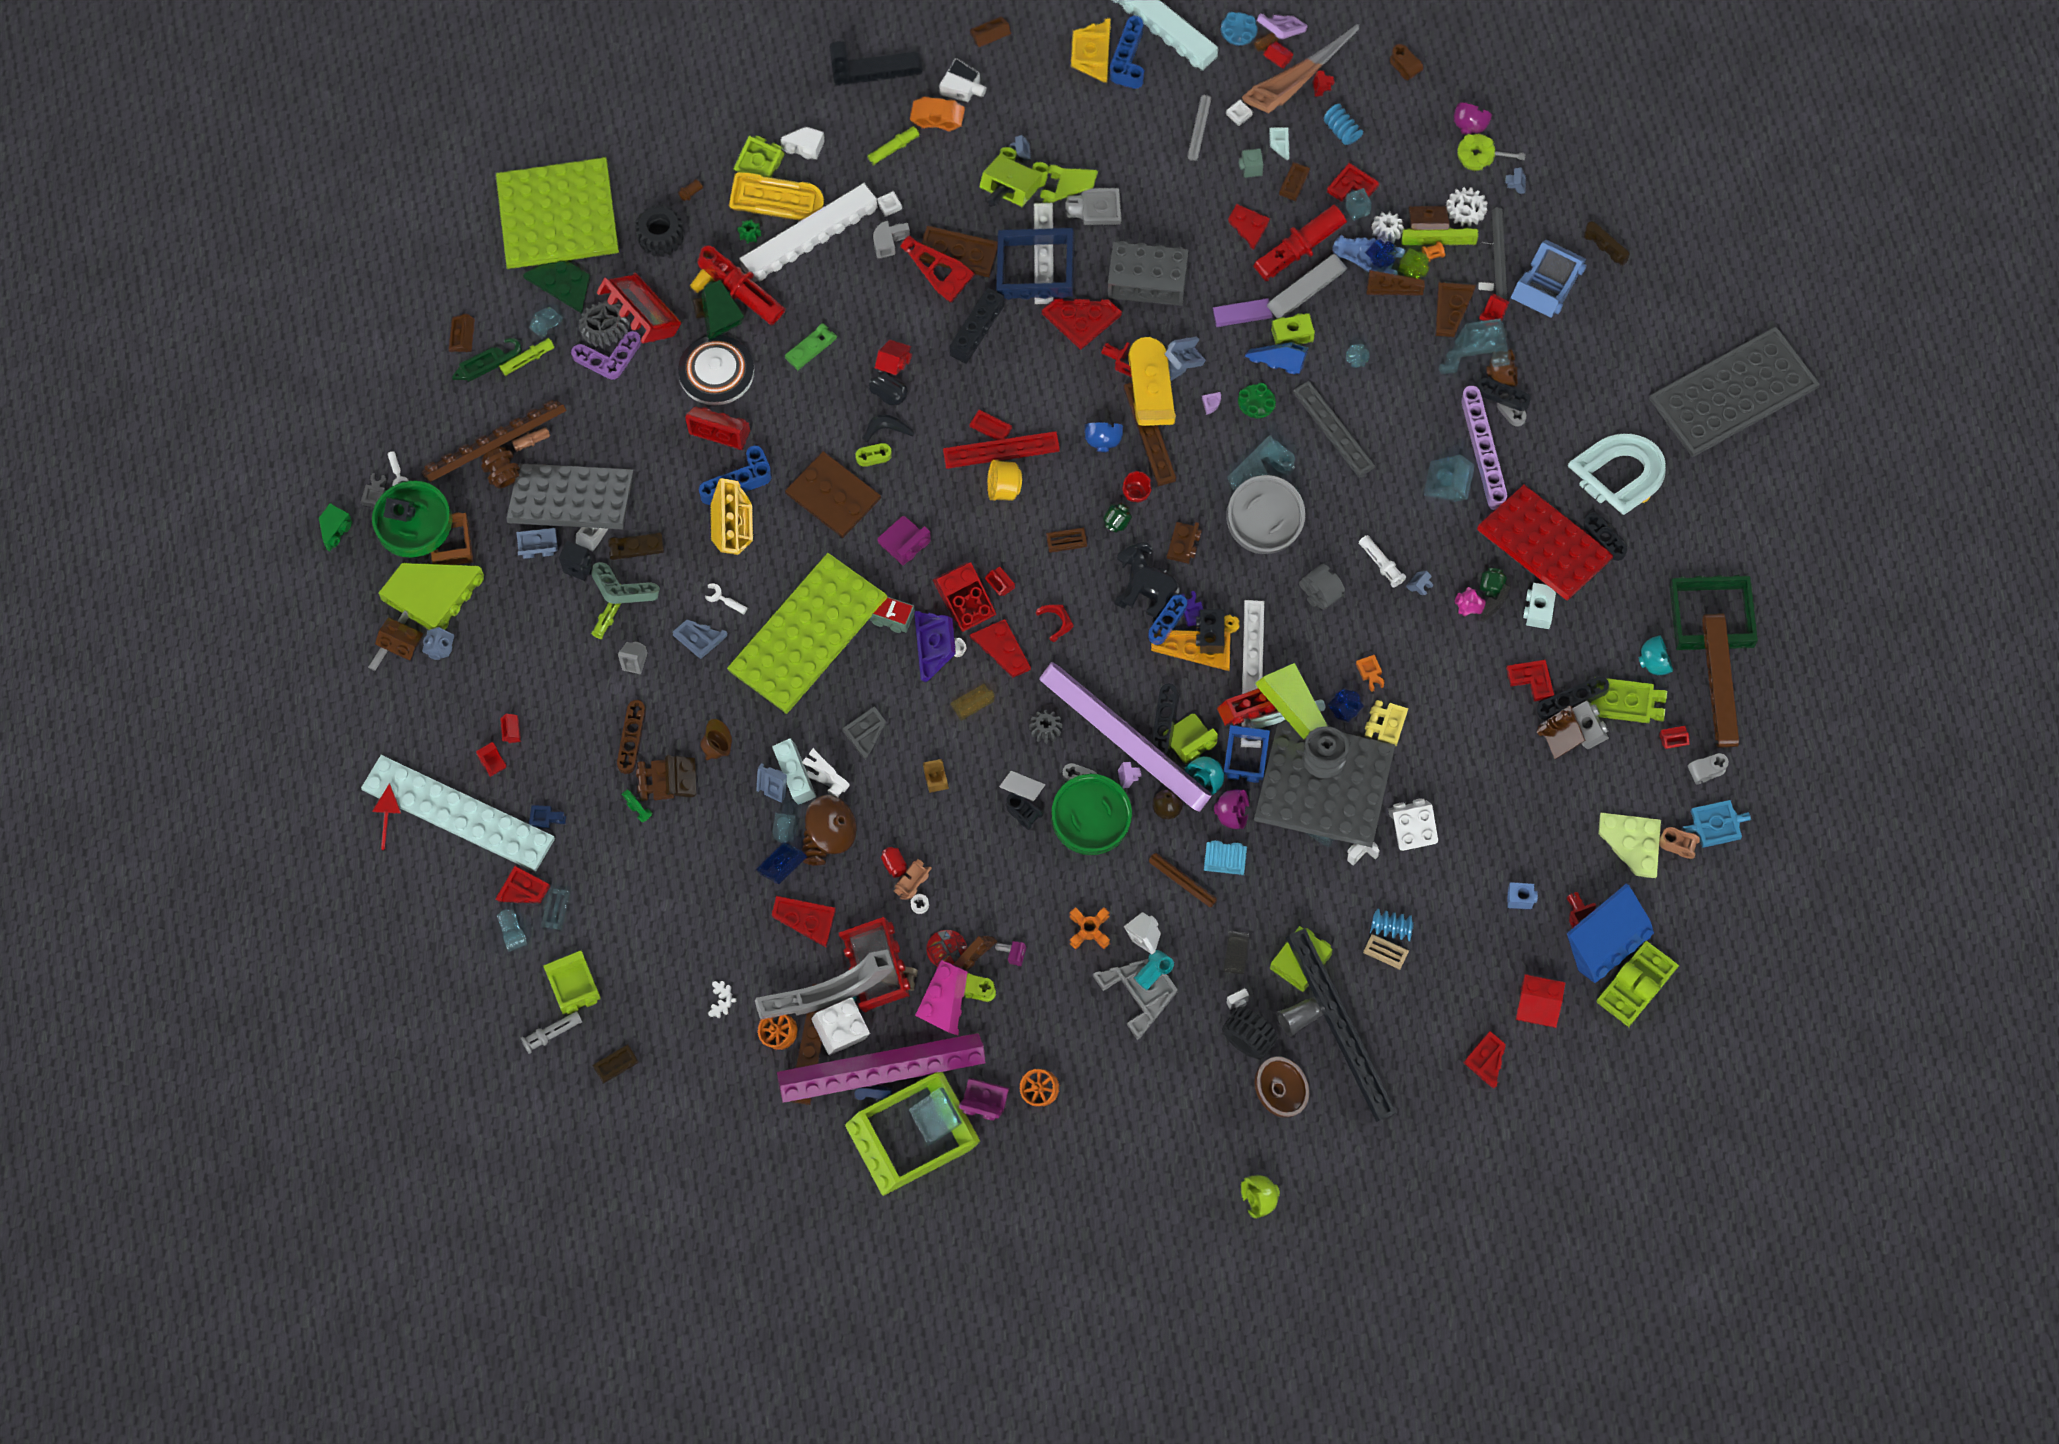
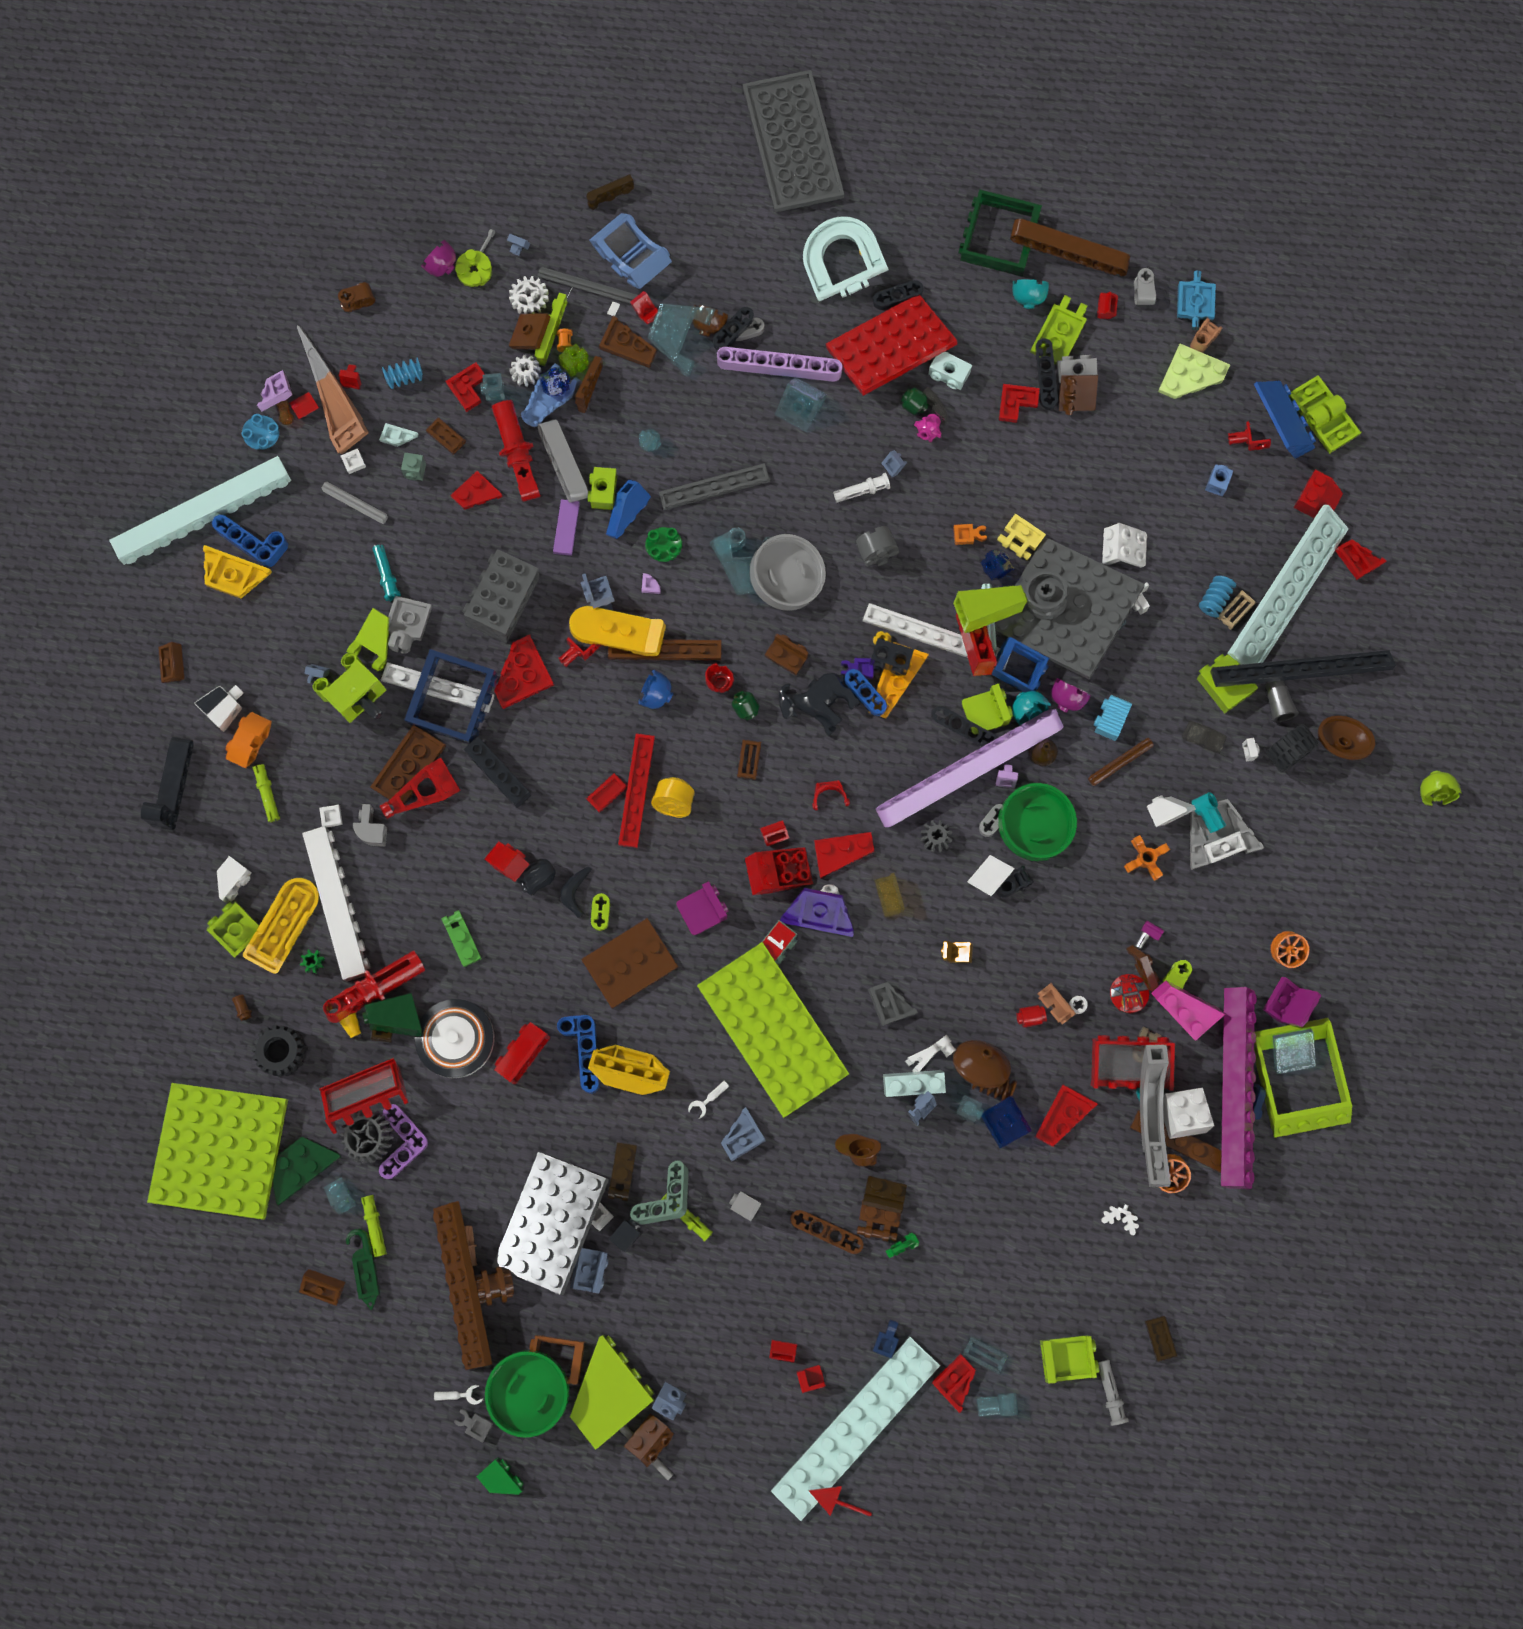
camera: 75 degrees left, 10 degrees up
(392, 512) = (517, 1412): black brick -> none
(1125, 999) = (1224, 847): none -> white slope
(1131, 178) = (387, 581): none -> teal pin
(1425, 992) = (1289, 588): none -> light aqua plate

